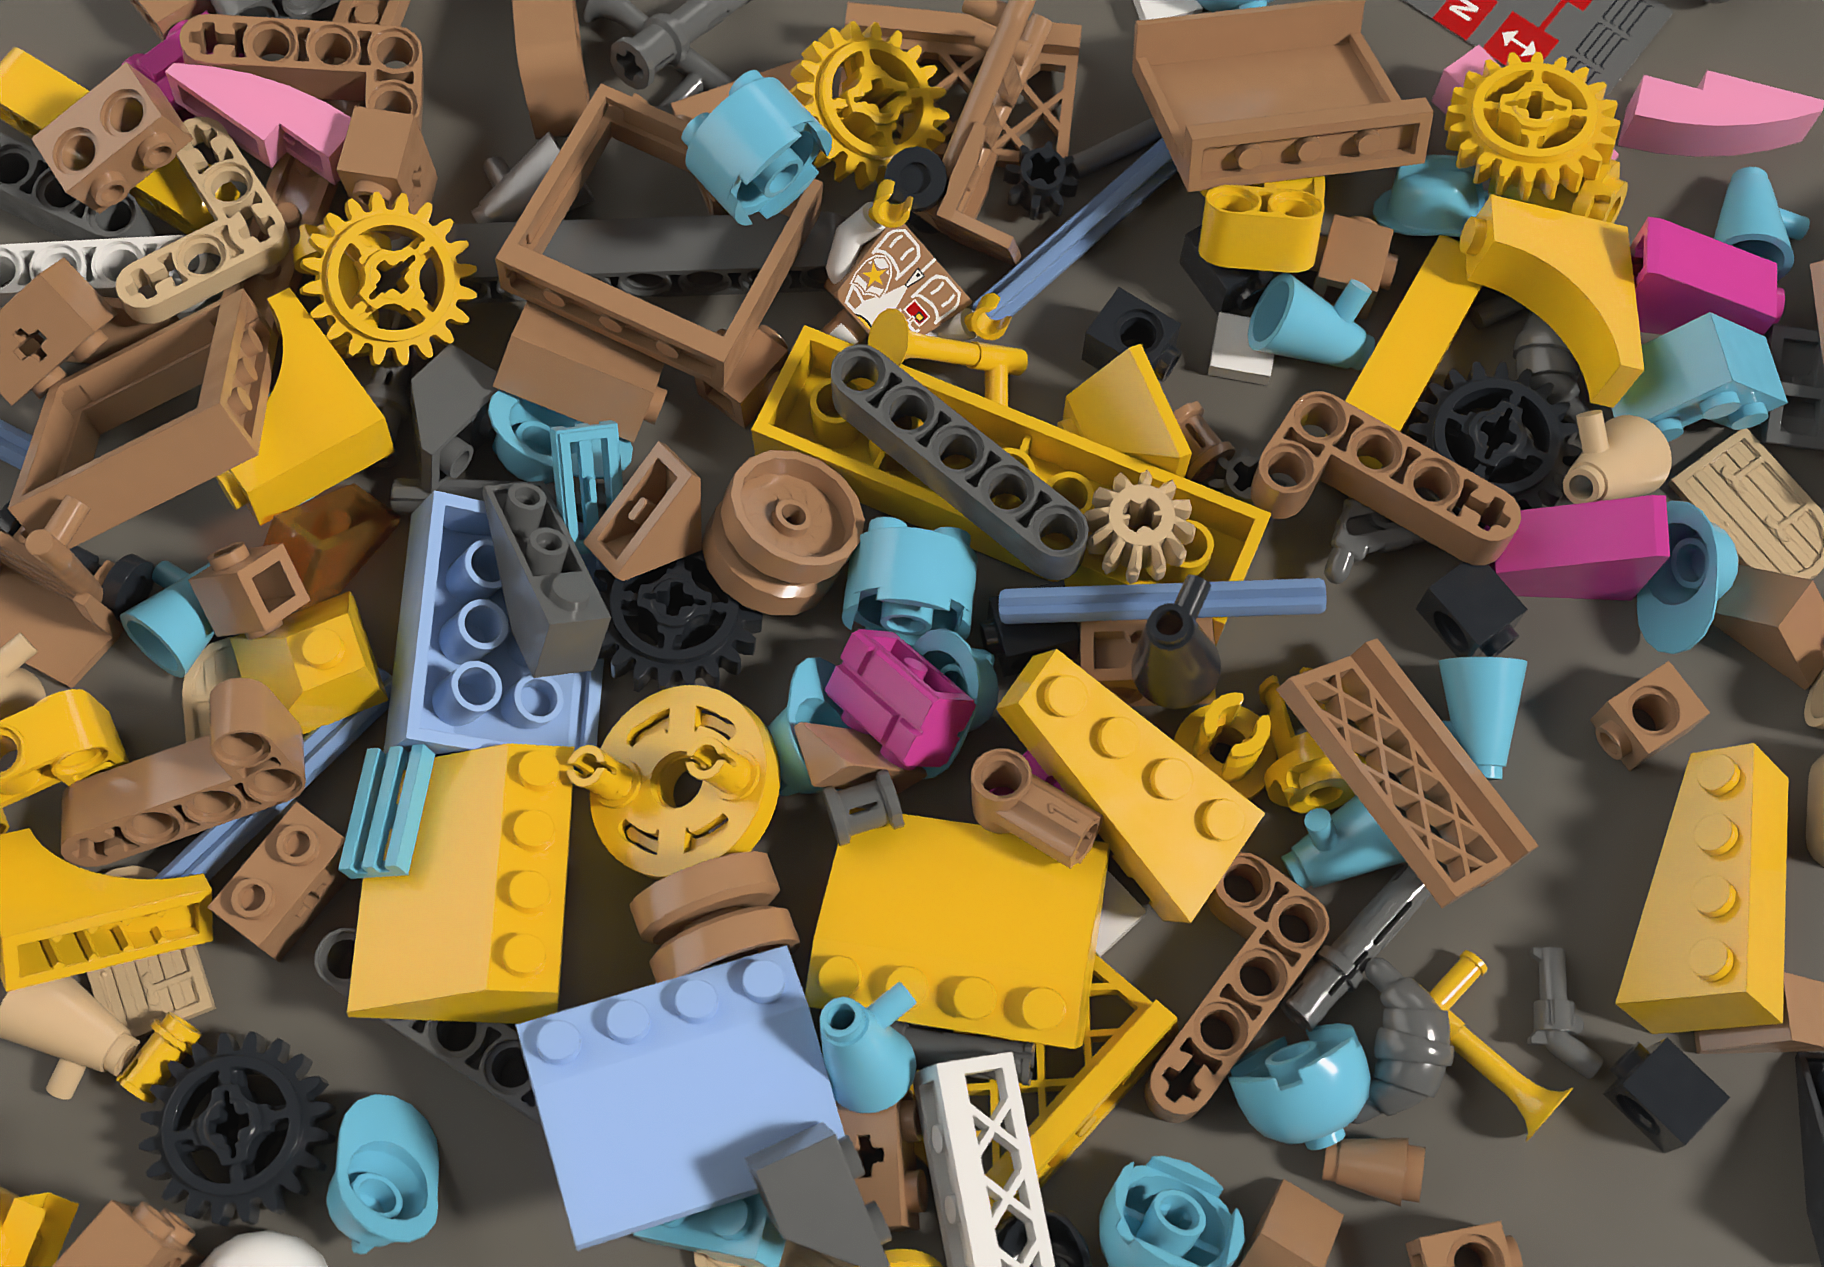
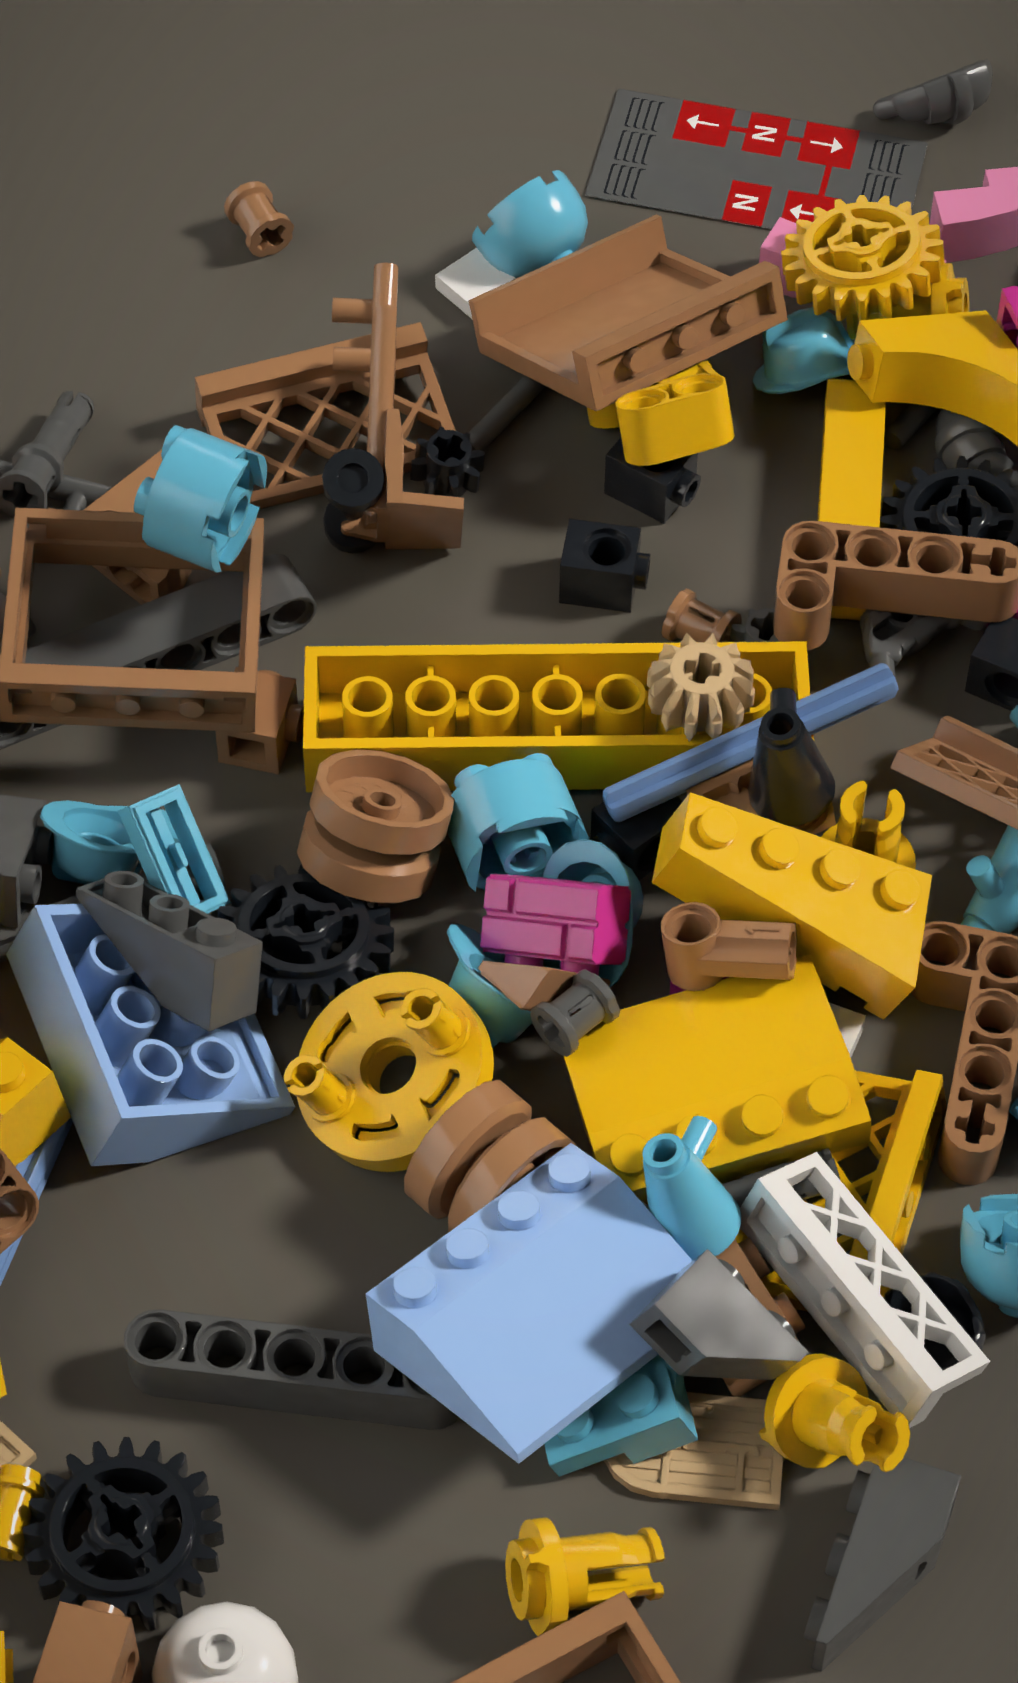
camera: 25 degrees left, 15 degrees down
(284, 883) = (57, 1308): medium nougat brick -> none
(377, 812) = (115, 1159): medium azure tile -> none
(384, 1174) = (287, 1519): medium azure piece -> none
(484, 896) = (241, 1228): yellow slope -> none
(580, 372) = (103, 765): medium nougat slope -> none
(651, 518) = (251, 851): medium nougat slope -> none
(877, 79) = (280, 433): yellow gear -> none
(884, 266) = (367, 589): torso -> none
(897, 342) = (398, 624): yellow piece -> none
(967, 489) = (512, 695): dark grey beam -> none
(1081, 231) = (504, 498): medium blue axle -> none
(1128, 413) = (639, 605): yellow slope -> none
(1232, 354) = (701, 538): white tile -> none
(1303, 773) = (943, 834): yellow piece -> none
(1304, 326) = (746, 493): medium azure piece -> none
(1357, 251) = (765, 436): medium nougat brick -> none

